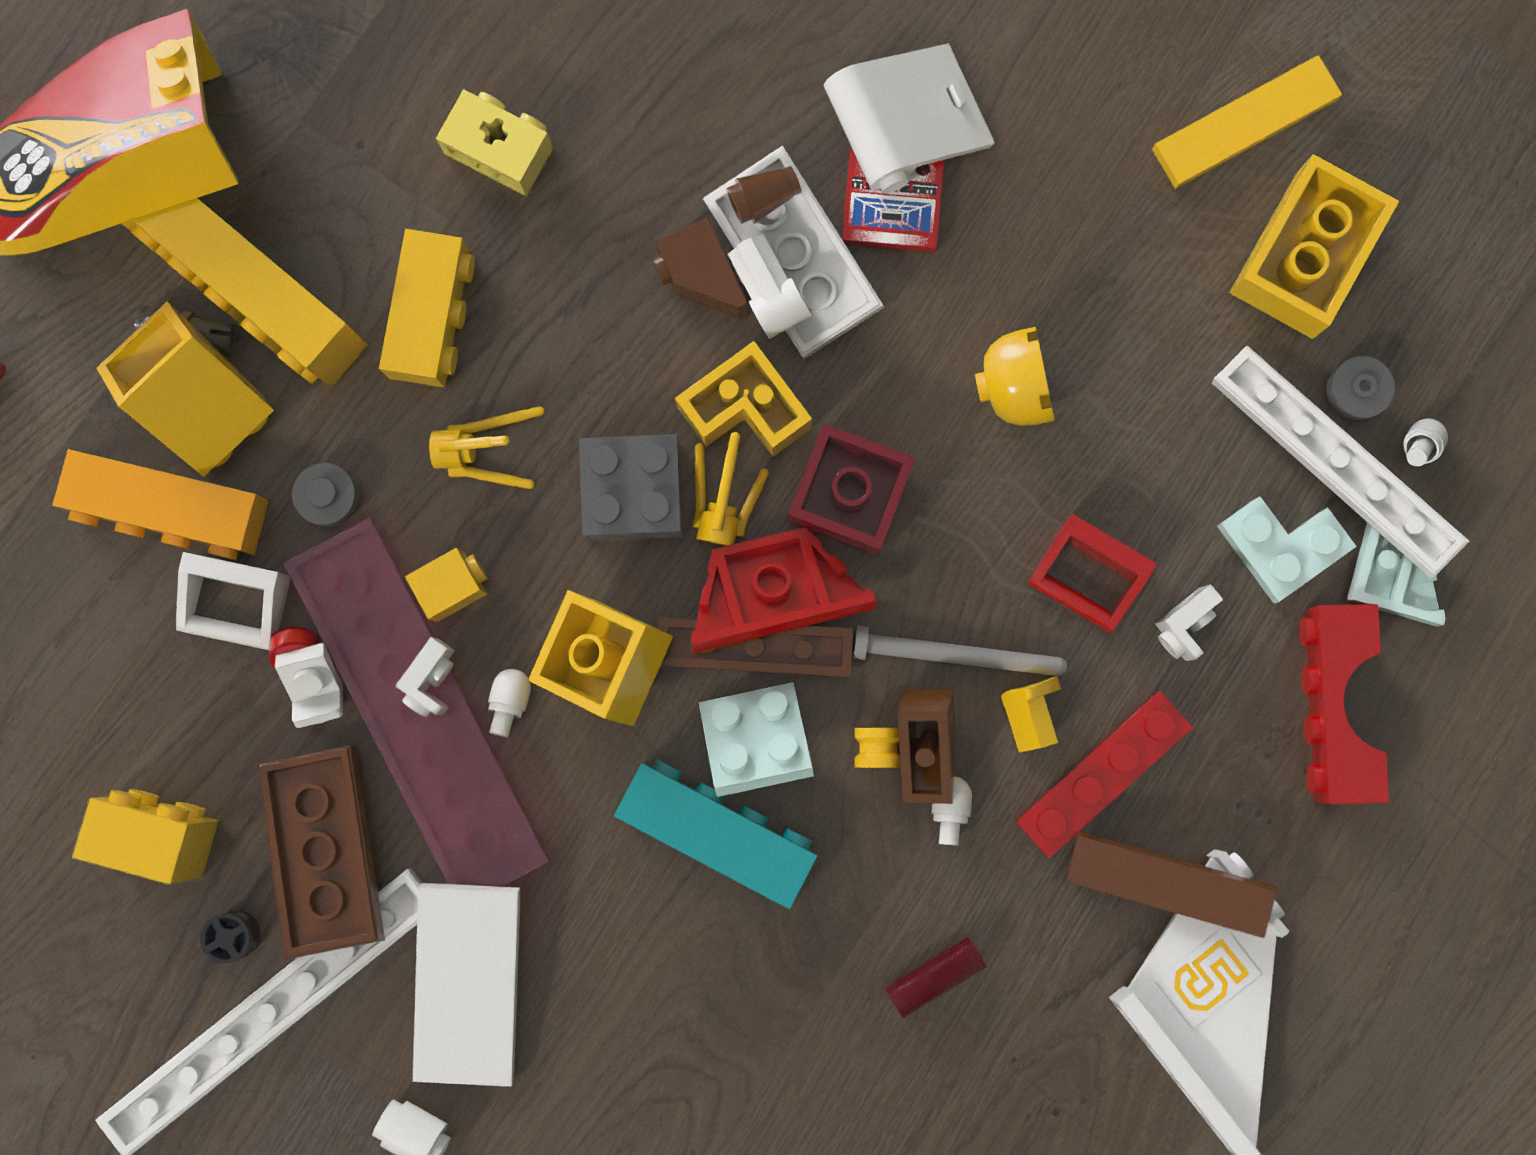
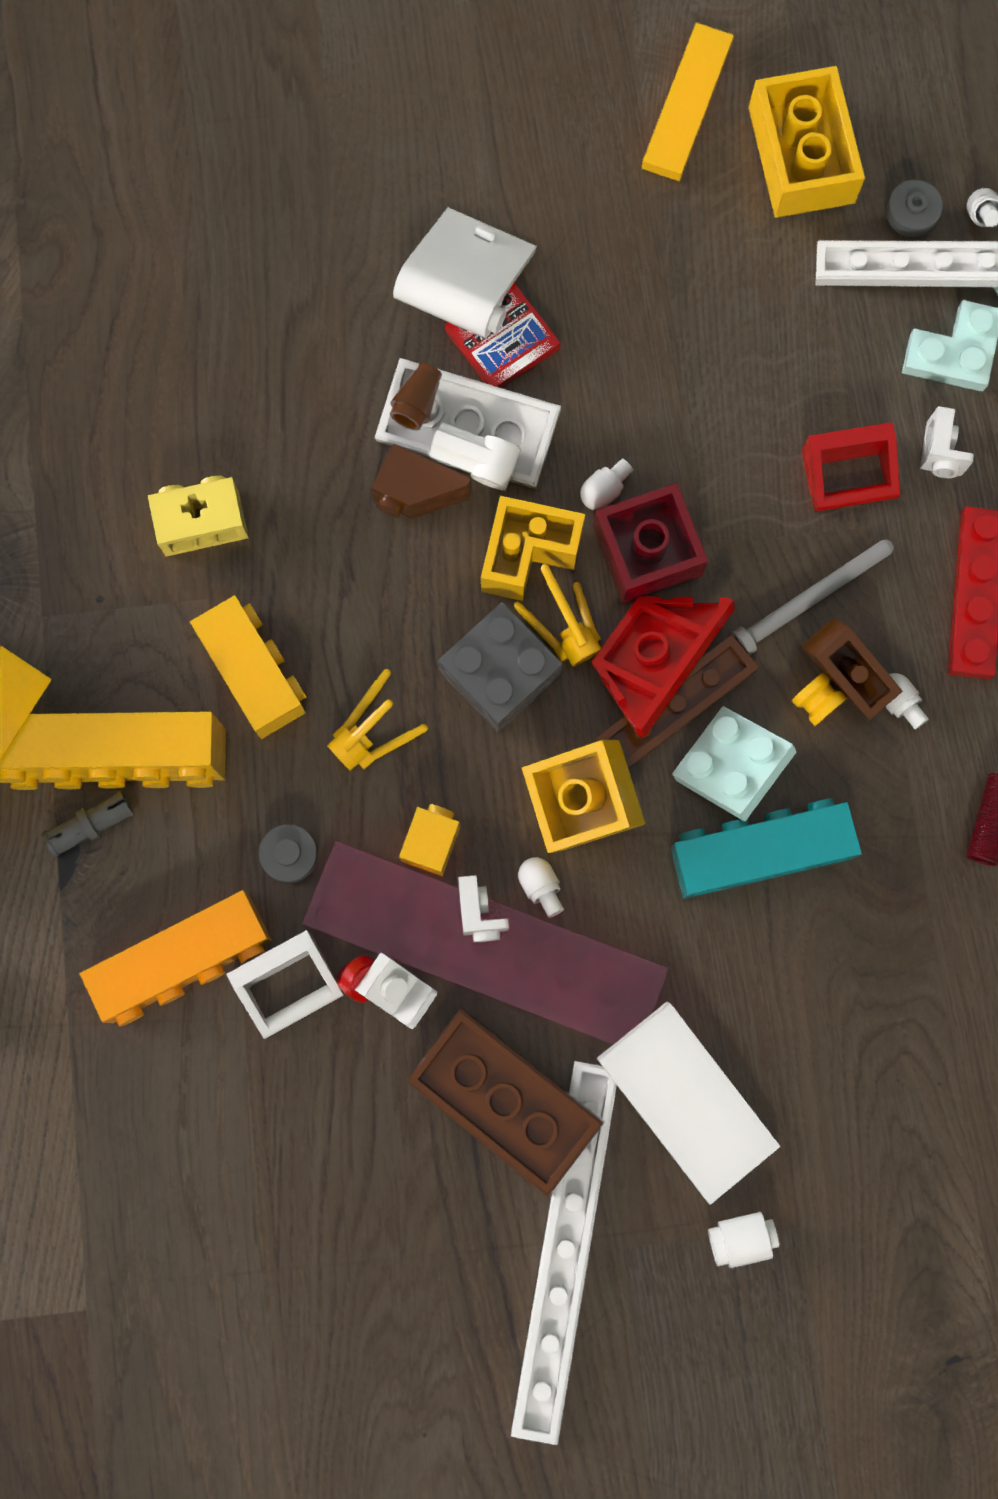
camera: 45 degrees left, 5 degrees down
(146, 837) = (376, 1196): yellow brick -> none
(184, 390) = (127, 860): yellow slope -> none
(219, 940) = (490, 1225): black wheel -> none
(862, 406) = (605, 485): none -> white cylinder
(1016, 379) = (694, 379): yellow cylinder -> none
(1030, 715) = (898, 592): yellow tile -> none

